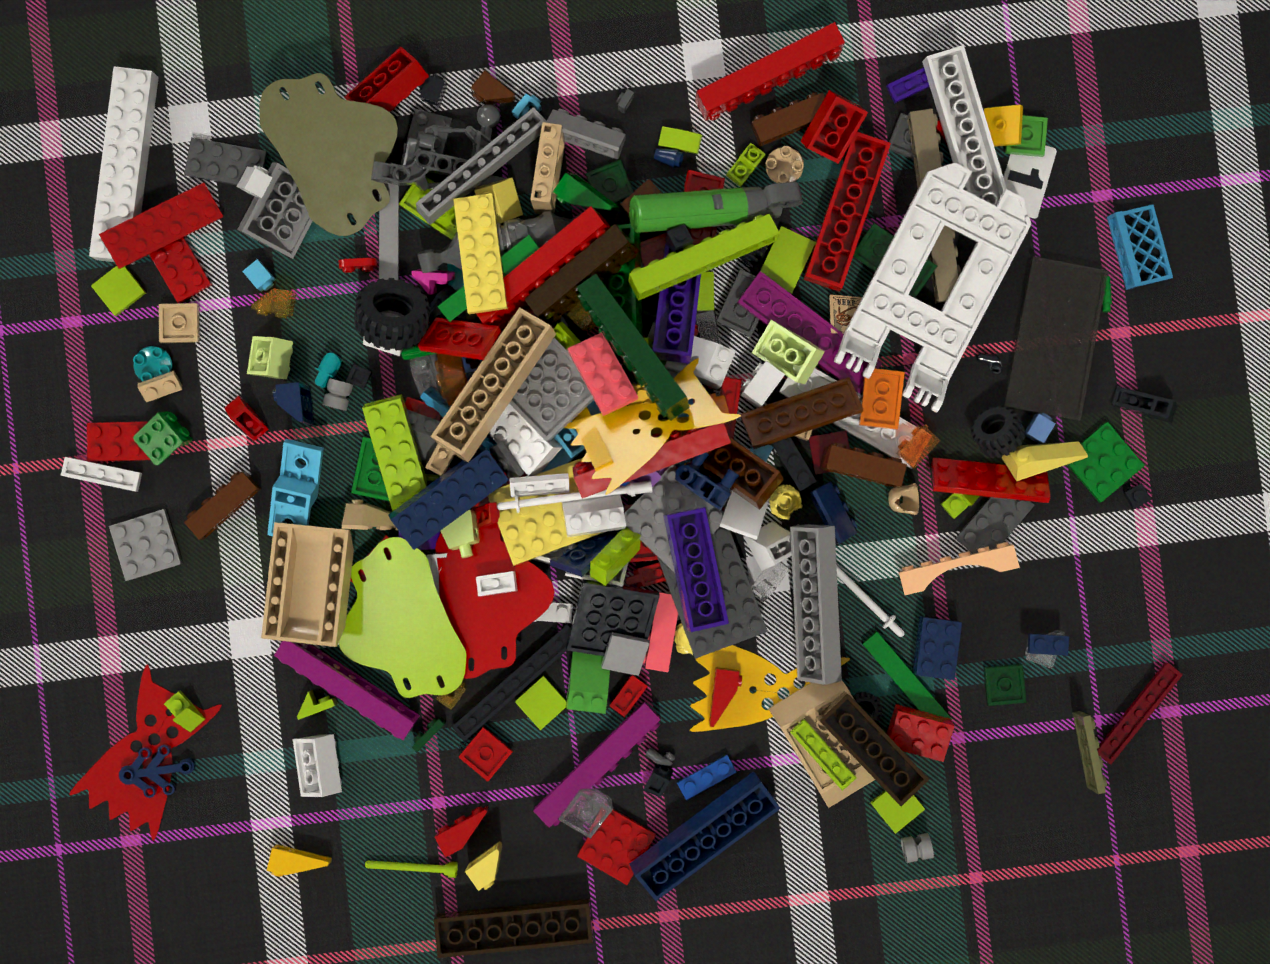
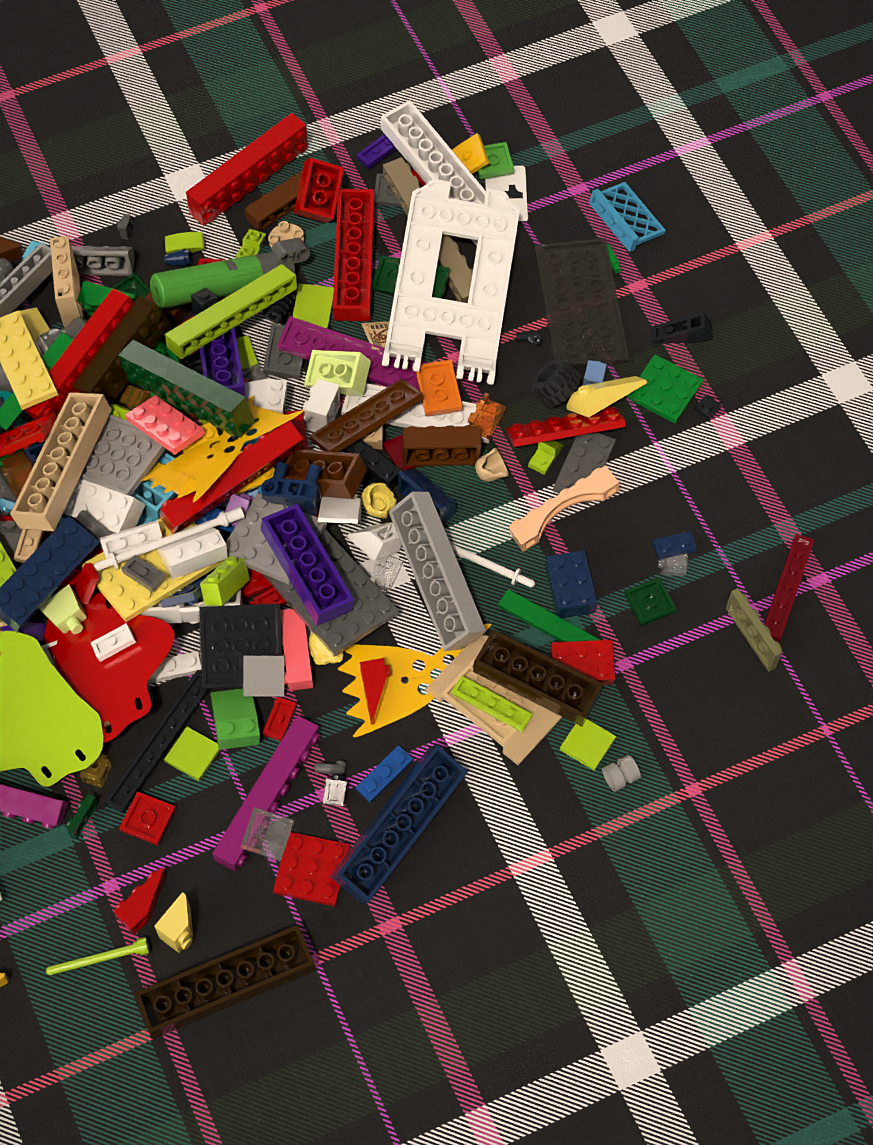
camera: 15 degrees left, 25 degrees down
(541, 527) = (143, 573): none -> dark grey plate

